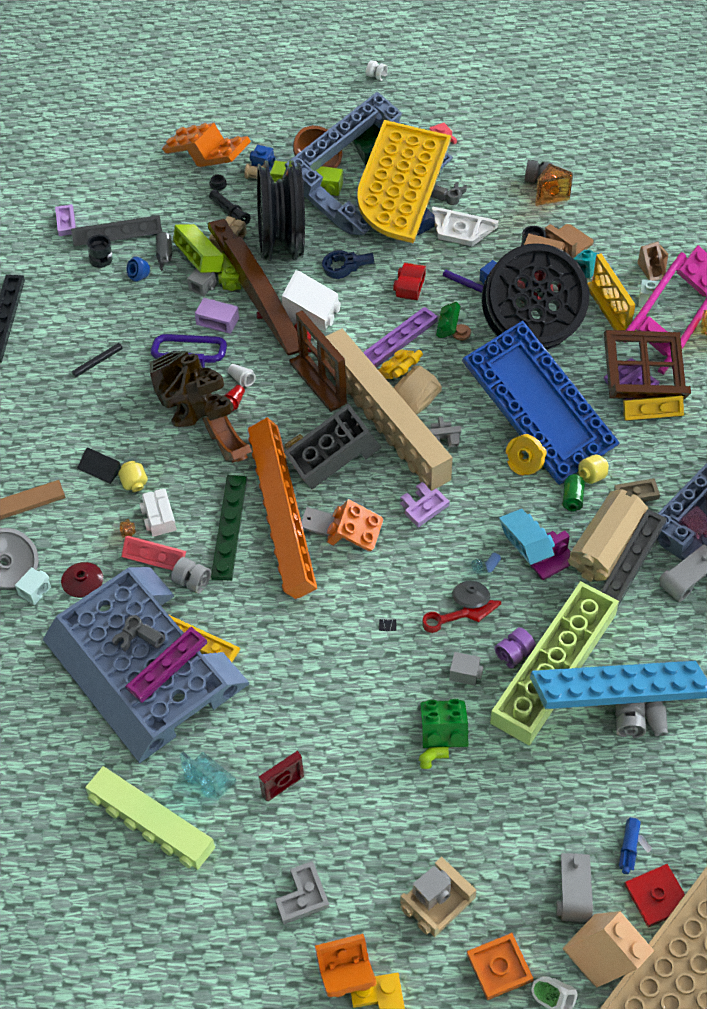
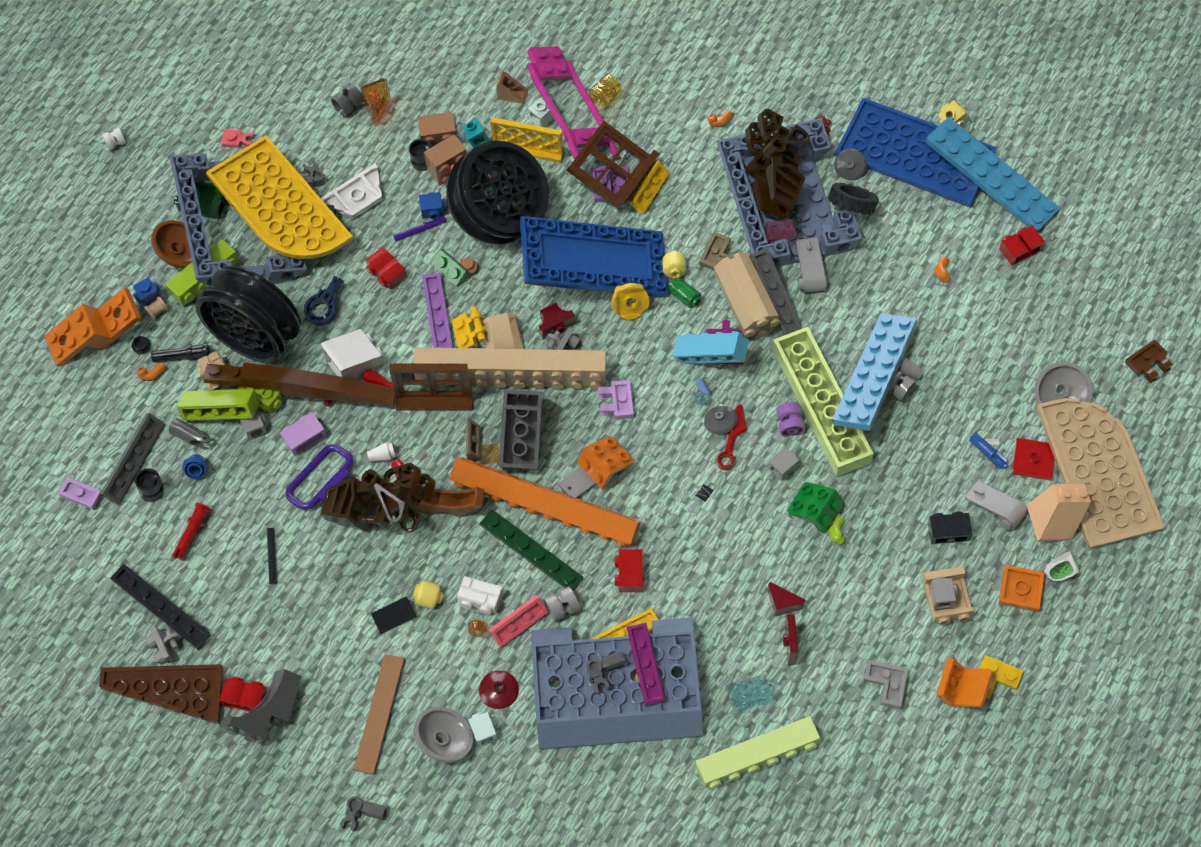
camera: 55 degrees left, 10 degrees up
(89, 297) = (195, 523): none -> red pin
(198, 203) = (151, 374): none -> orange arm
(263, 604) = (630, 570): none -> red piece
(298, 423) = (472, 440): none -> dark tan slope
(320, 750) = (784, 600): none -> dark red slope
(461, 414) = (555, 320): none -> dark red brick
(512, 855) = (949, 528): none -> black brick

